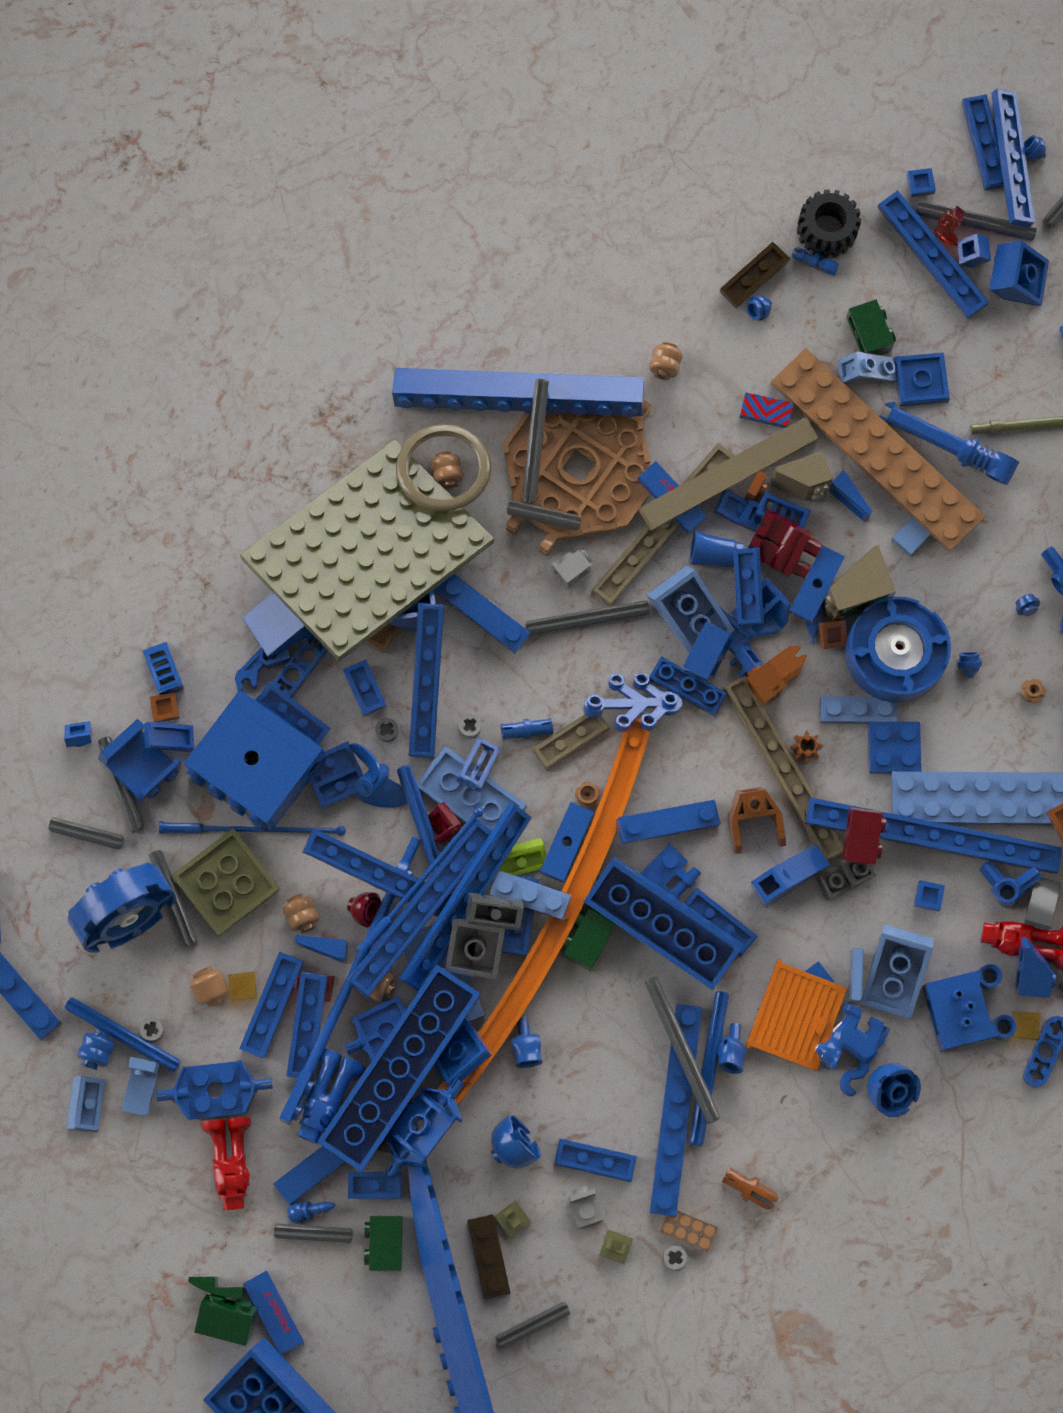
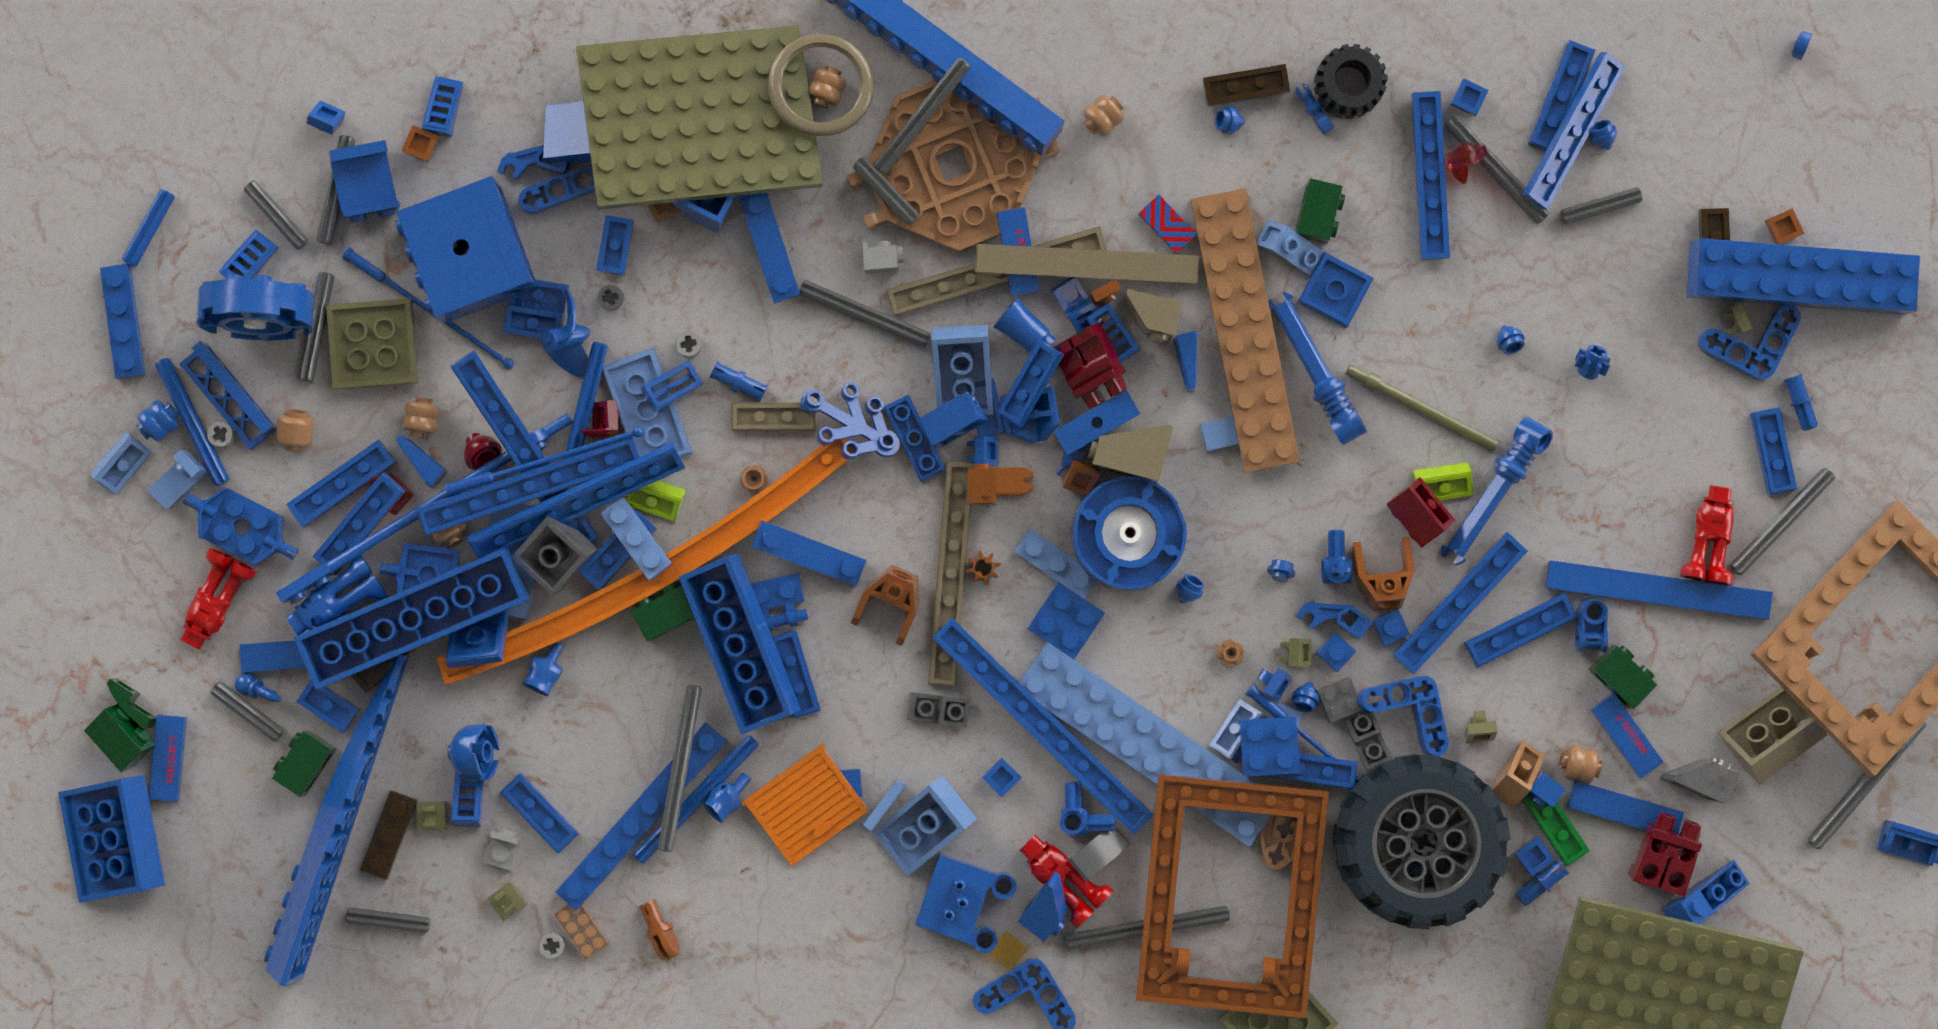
camera: 30 degrees right, 10 degrees up
(77, 875) = (241, 252): none -> blue slope
(139, 985) = (232, 387): none -> blue fence
(169, 736) = (405, 174): blue tile -> none
(242, 986) = (327, 448): clear yellow tile -> none
(292, 713) = (531, 228): blue plate -> none
(426, 680) = (672, 276): blue tile -> none
(439, 1113) = (420, 681): blue plate -> none
(494, 911) = (589, 533): dark grey brick -> none
(540, 1205) = (467, 821): none -> blue slope
(573, 829) = (719, 500): blue tile -> none
(789, 875) = (885, 675): blue slope -> none
(855, 1042) = (842, 866): blue animal -> none
(863, 836) = (973, 685): dark red brick -> none
(893, 1089) = (844, 929): blue cylinder -> none
(974, 250) = (1471, 198): blue plate -> none
(1019, 273) = (1499, 249): blue slope -> none

